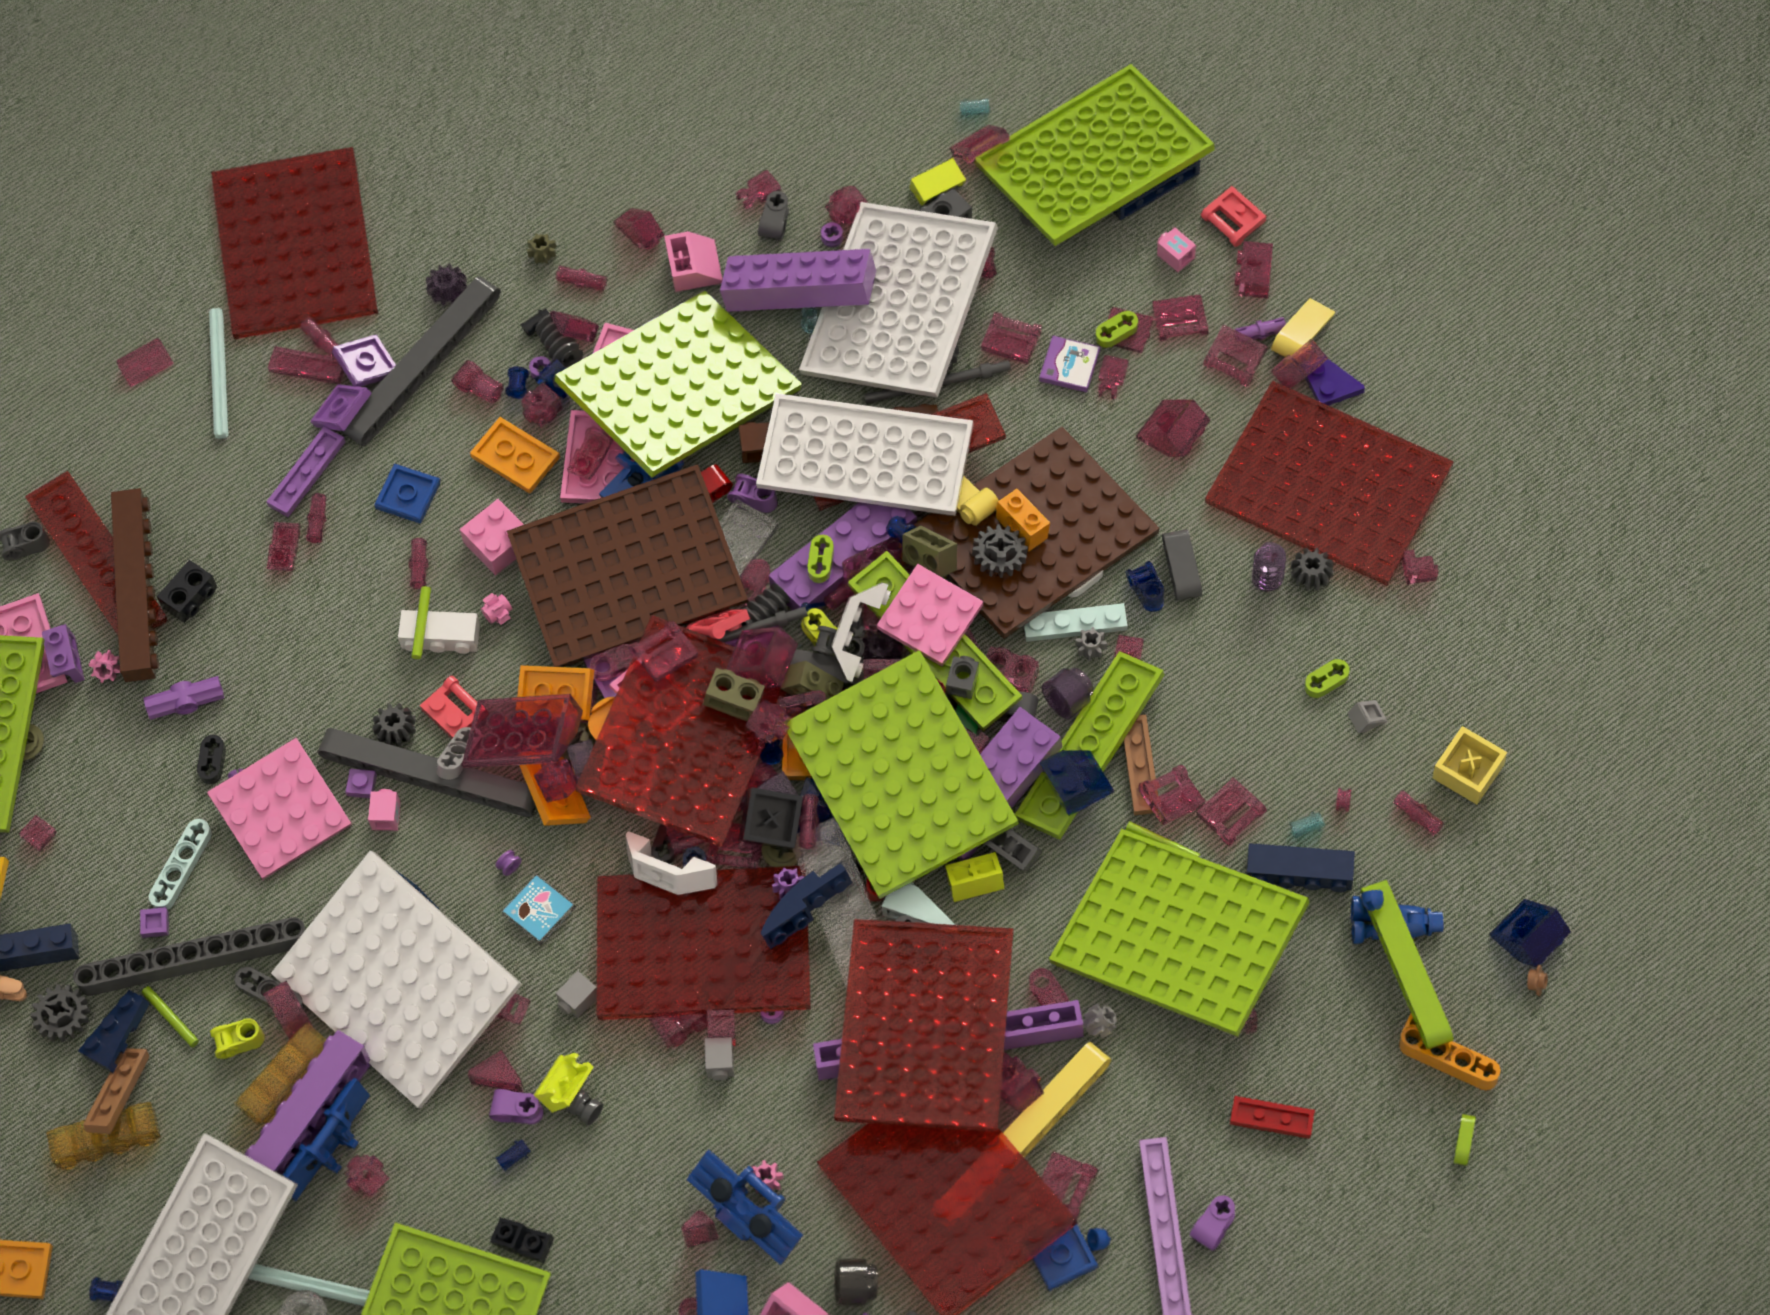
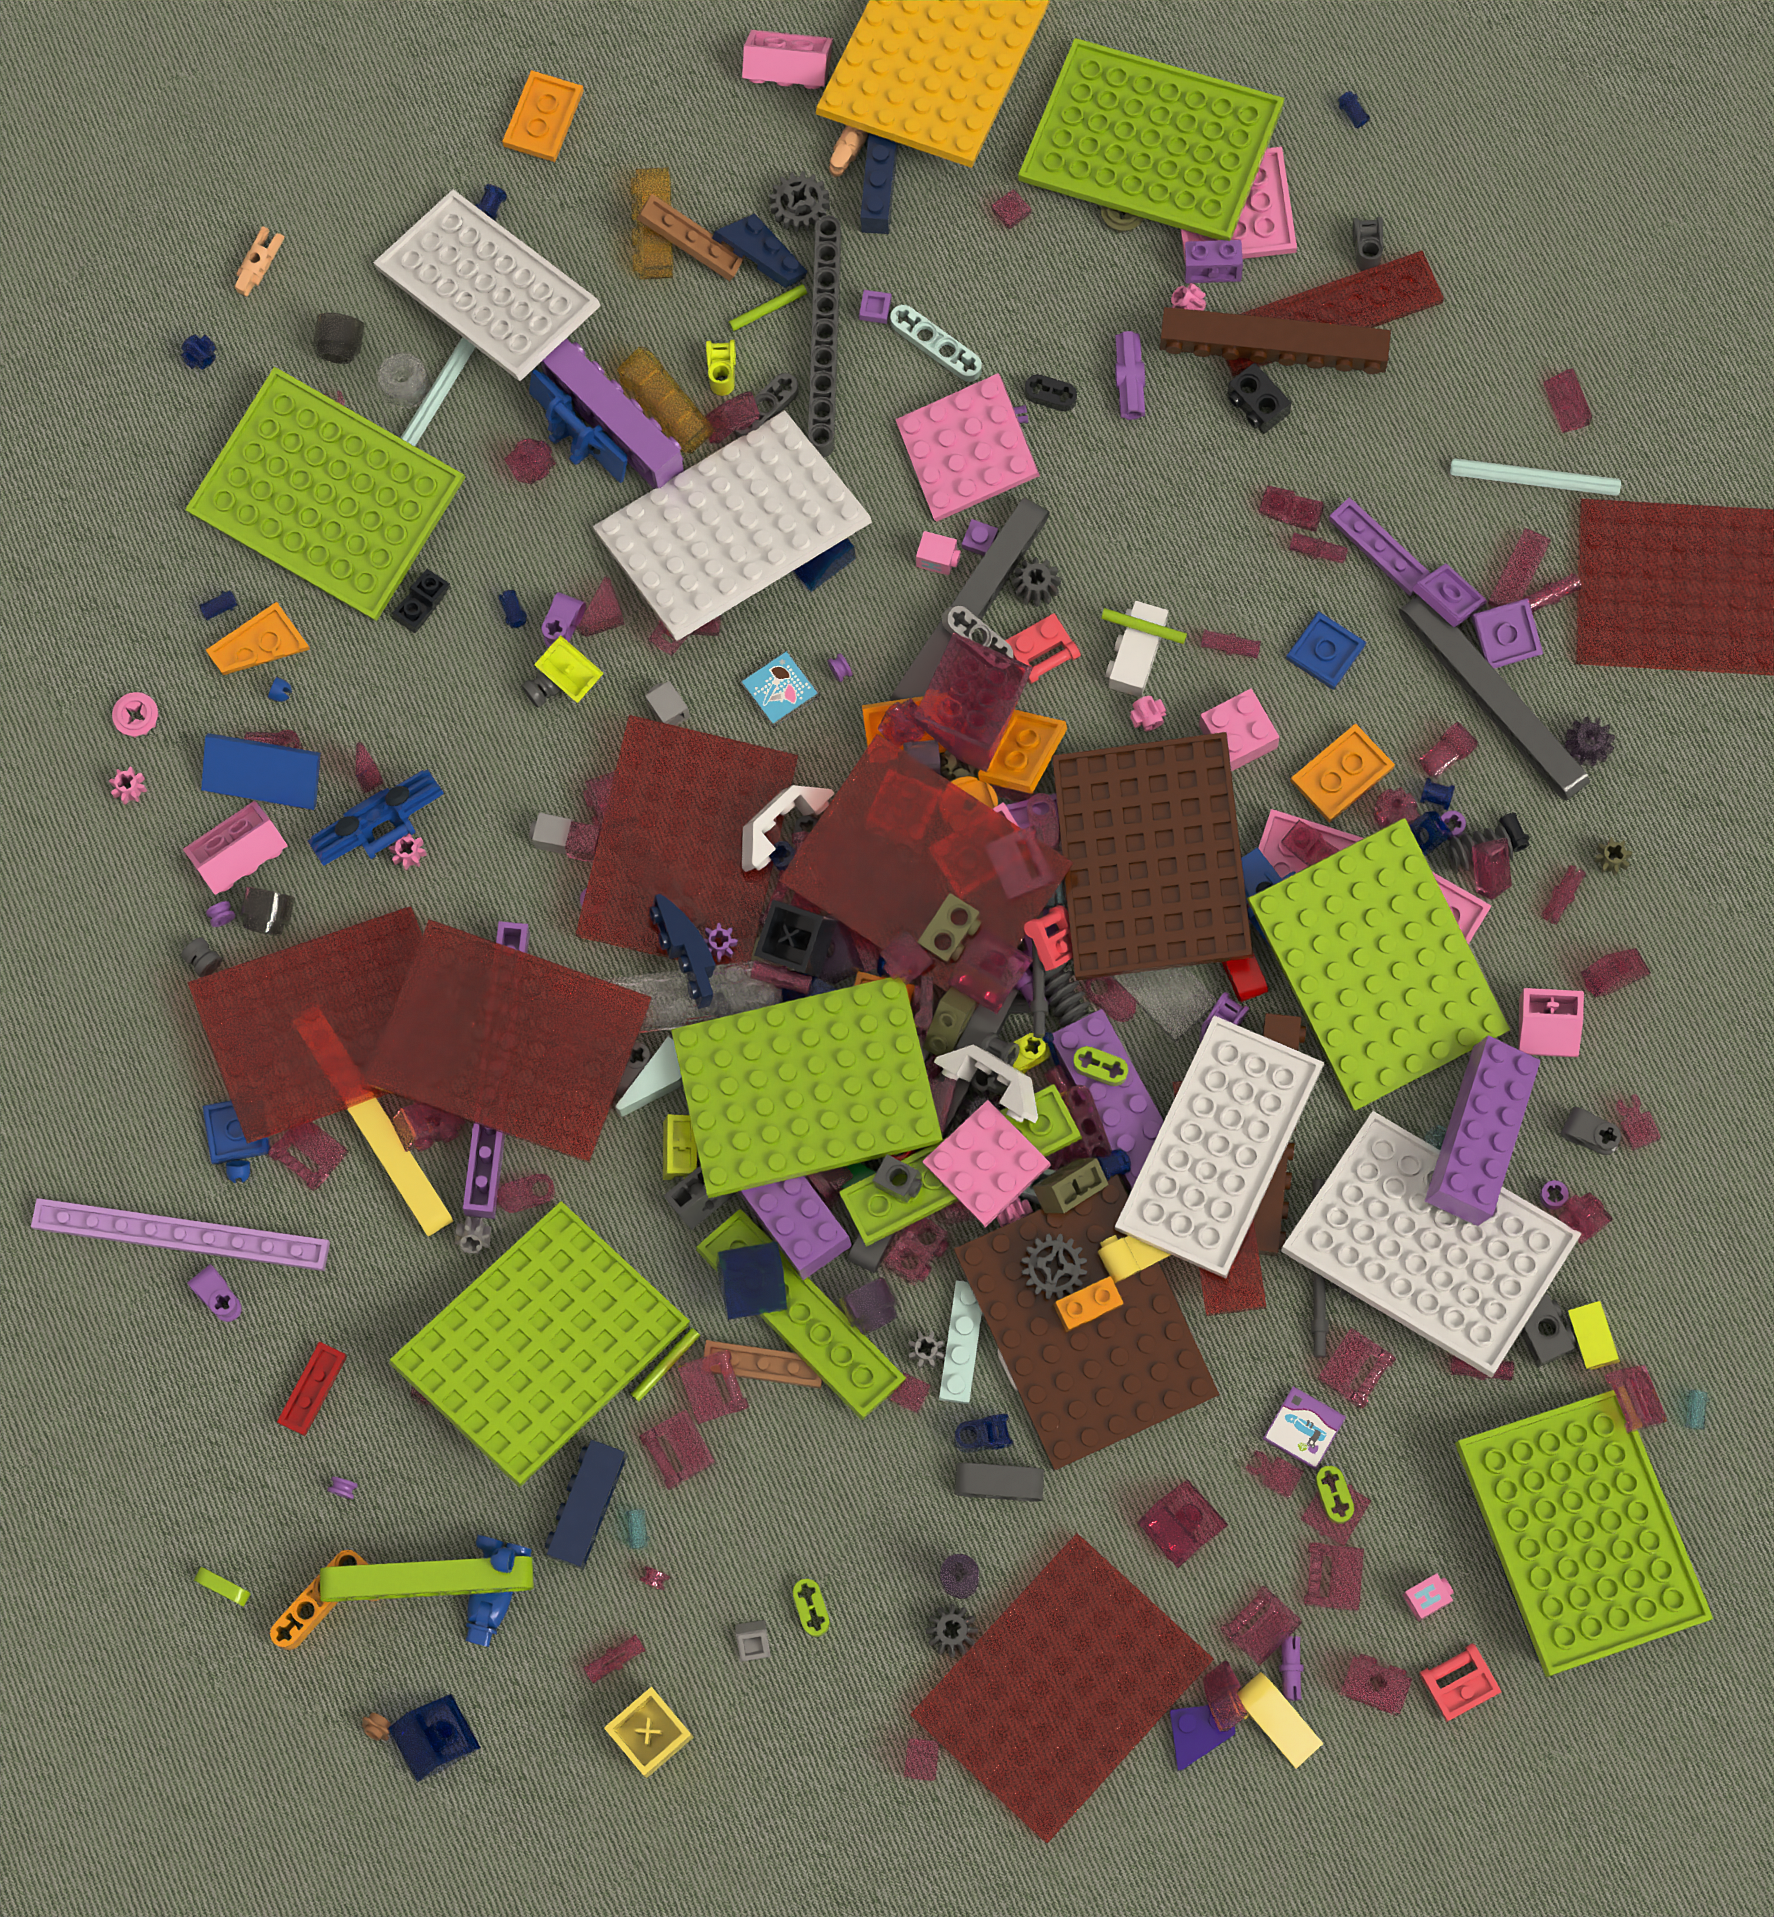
camera: 105 degrees right, 10 degrees up
(1348, 1066) = (342, 1487): none -> medium lavender bush

